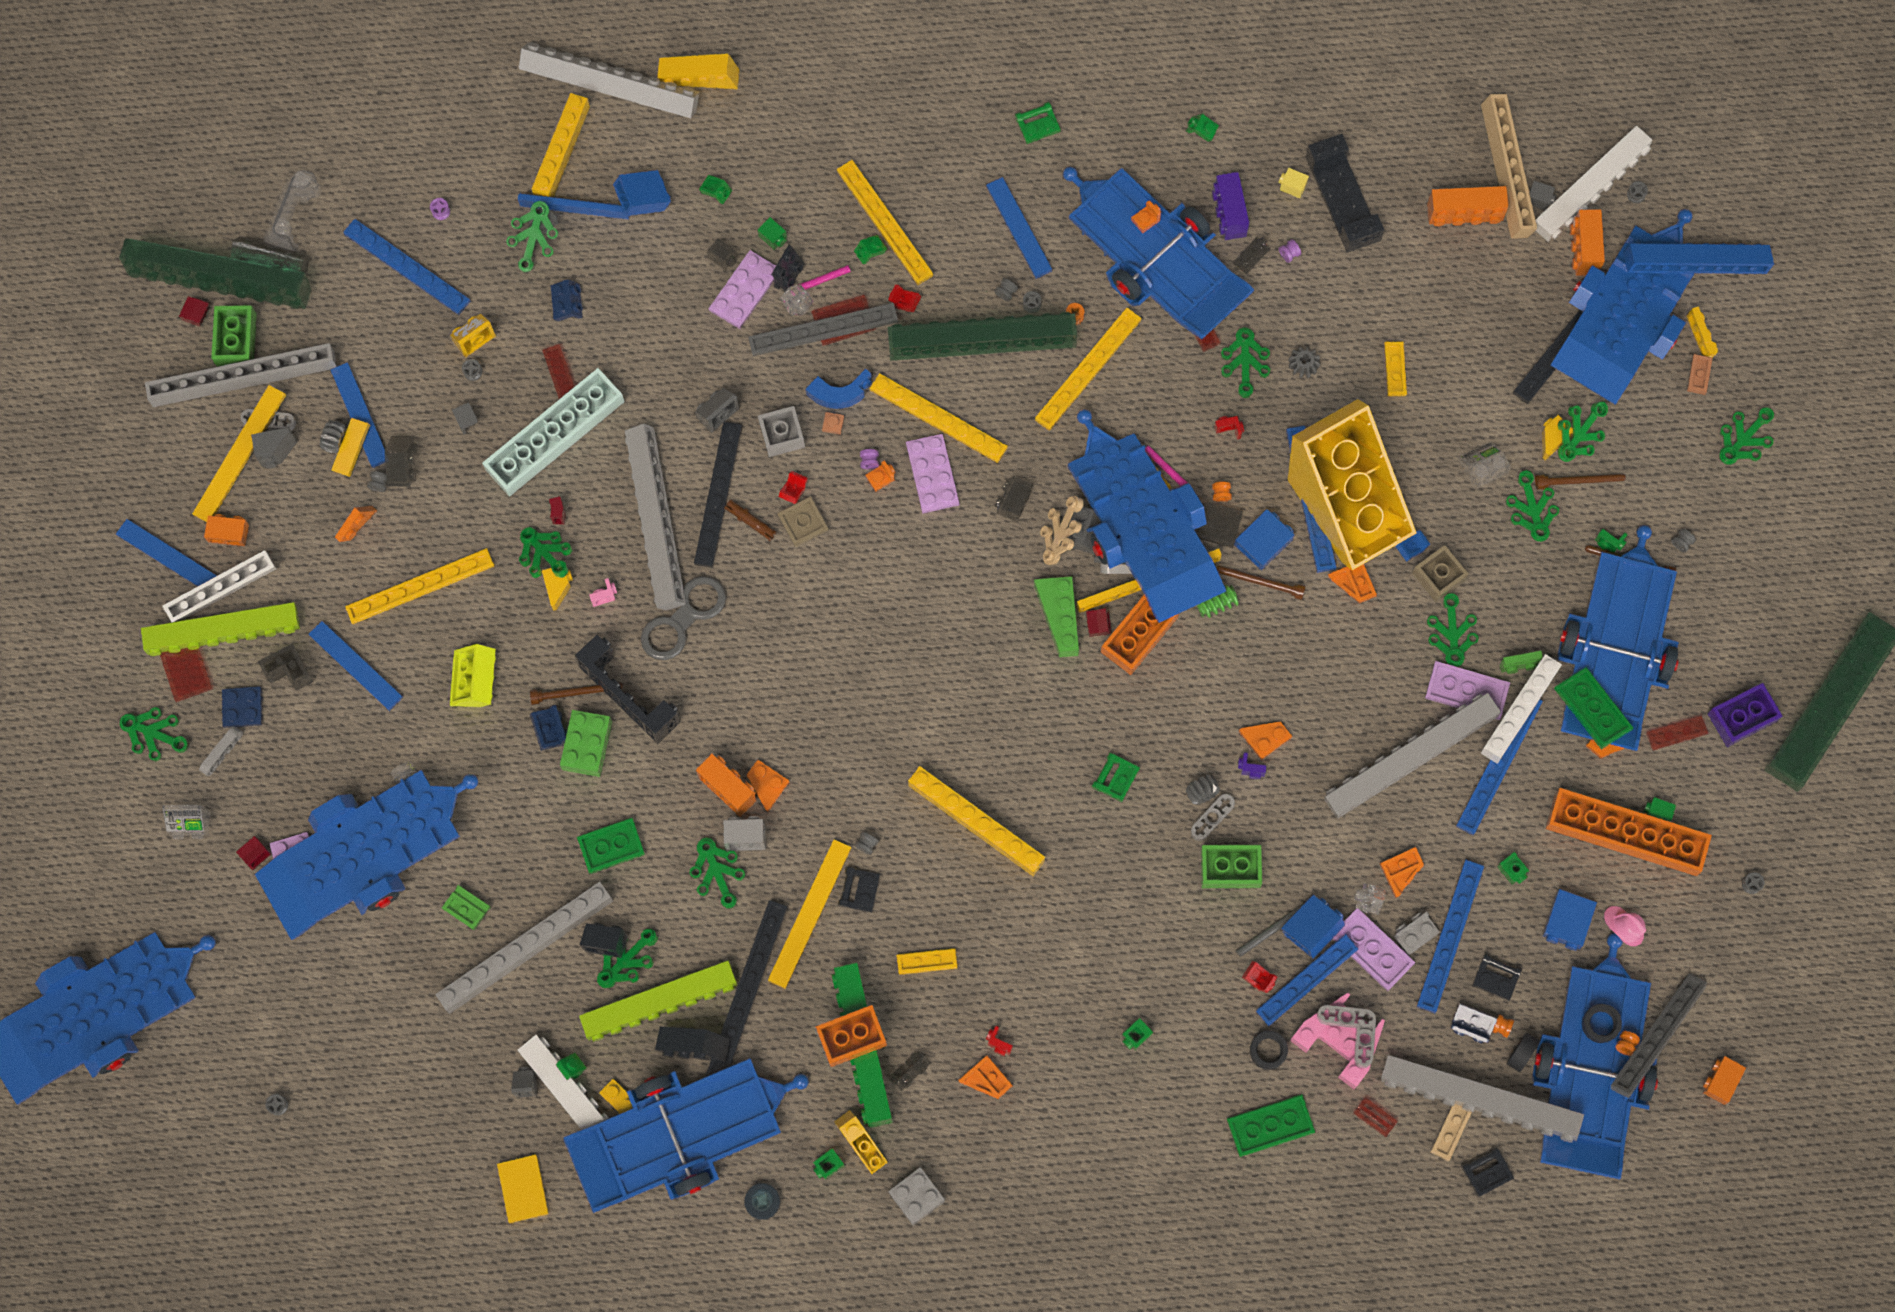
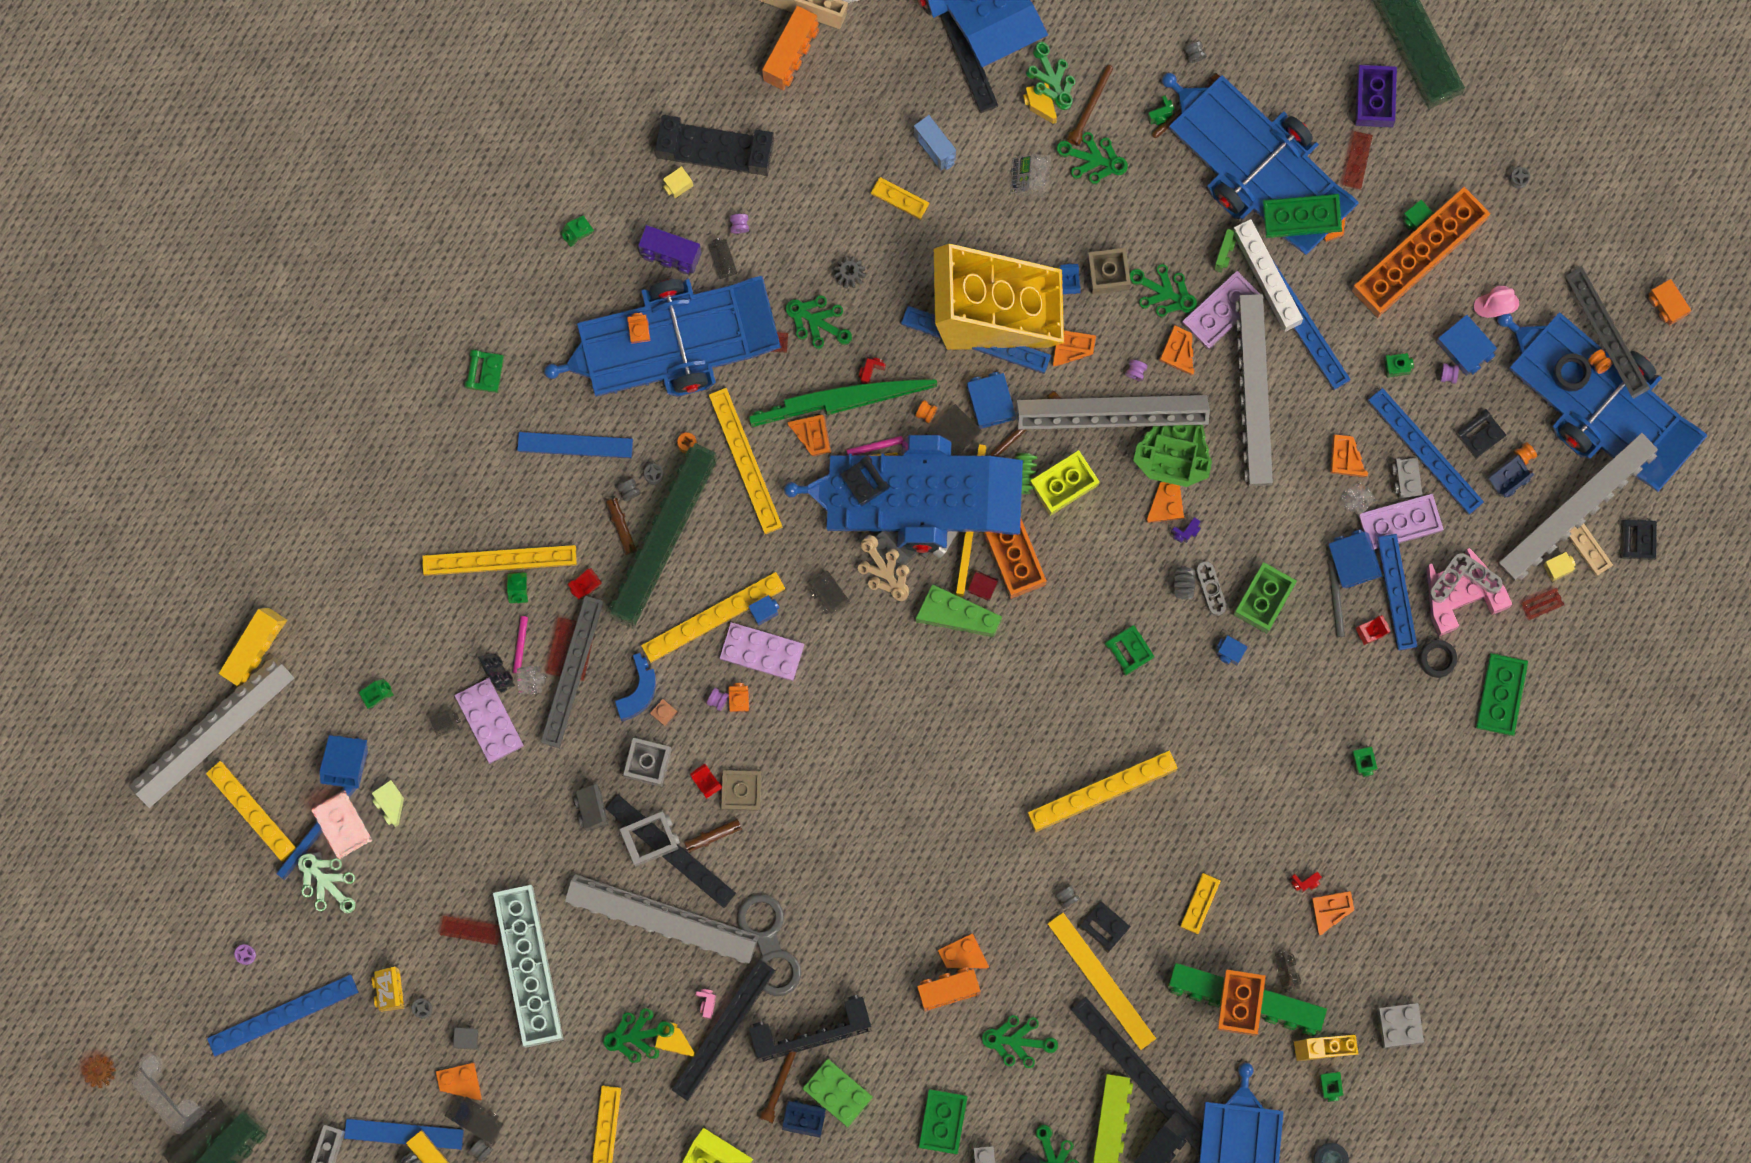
camera: 60 degrees left, 5 degrees up
(288, 152) = (105, 1067): none -> clear orange gear
(428, 434) = (460, 1081): none -> orange wing
(557, 511) = (604, 1002): dark red piece -> none
(566, 300) = (404, 887): dark blue bracket -> none
(588, 220) = (341, 824): none -> clear red tile
(588, 619) = (723, 1030): none -> black plate
(631, 249) = (390, 801): none -> yellowish green slope
(702, 455) = (637, 860): none -> light grey window
(744, 834) = (1002, 998): light grey brick -> none
(772, 233) = (452, 666): green brick -> none
(968, 453) = (764, 610): none -> blue brick
(976, 296) = (621, 526): none -> reddish brown pin
(1121, 466) = (858, 483): none -> black plate
(1144, 410) = (812, 434): none -> orange wing
(1166, 863) = (1230, 650): none -> blue brick
(1189, 416) = (841, 399): none -> green slope
(1229, 639) = (1064, 483): none -> neon yellow slope
(1314, 714) = (1174, 454): none -> bright green wedge
(1316, 645) = (1113, 412): none -> light grey brick
(1367, 646) = (1136, 370): none -> medium lavender wheel
(1407, 673) = (1179, 350): none -> orange wing
(1418, 1113) = (1559, 566): none -> light yellow brick
(1460, 367) = (935, 143): none -> medium blue window
(1523, 1052) = (1558, 450): black tyre -> none
(1534, 918) = (1449, 373): none -> medium lavender wheel

